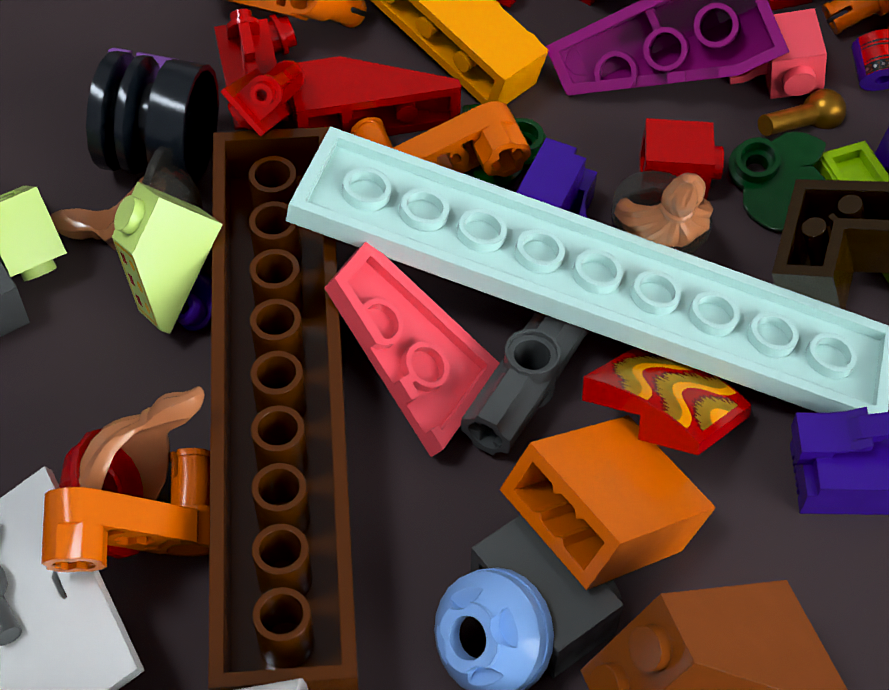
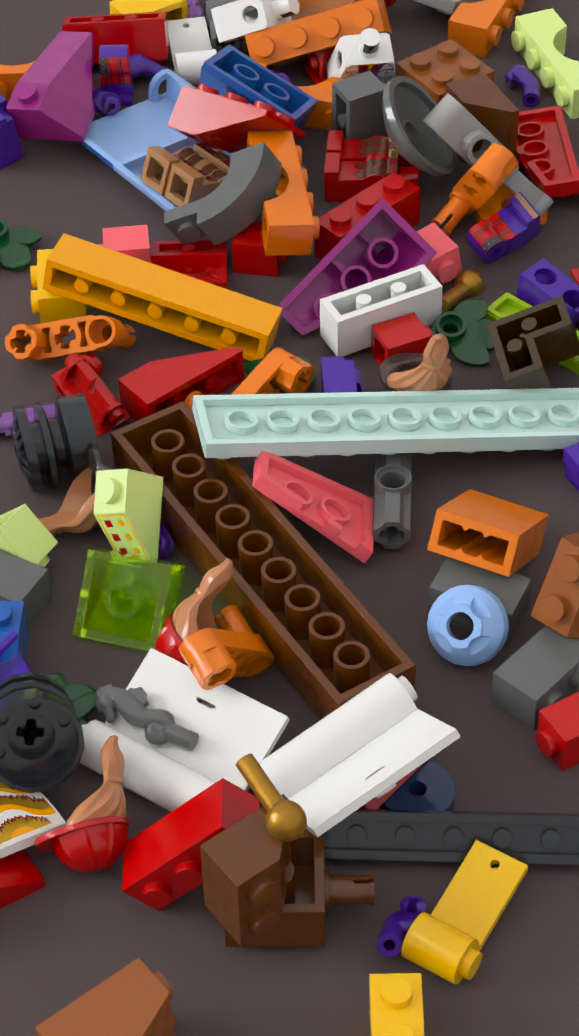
camera: 25 degrees left, 10 degrees down
(96, 362) = (126, 598): none -> clear neon green slope
(261, 99) = (131, 395): red hinge -> none
(674, 401) = (496, 470): slope -> none
(675, 89) = (349, 315): none -> white brick

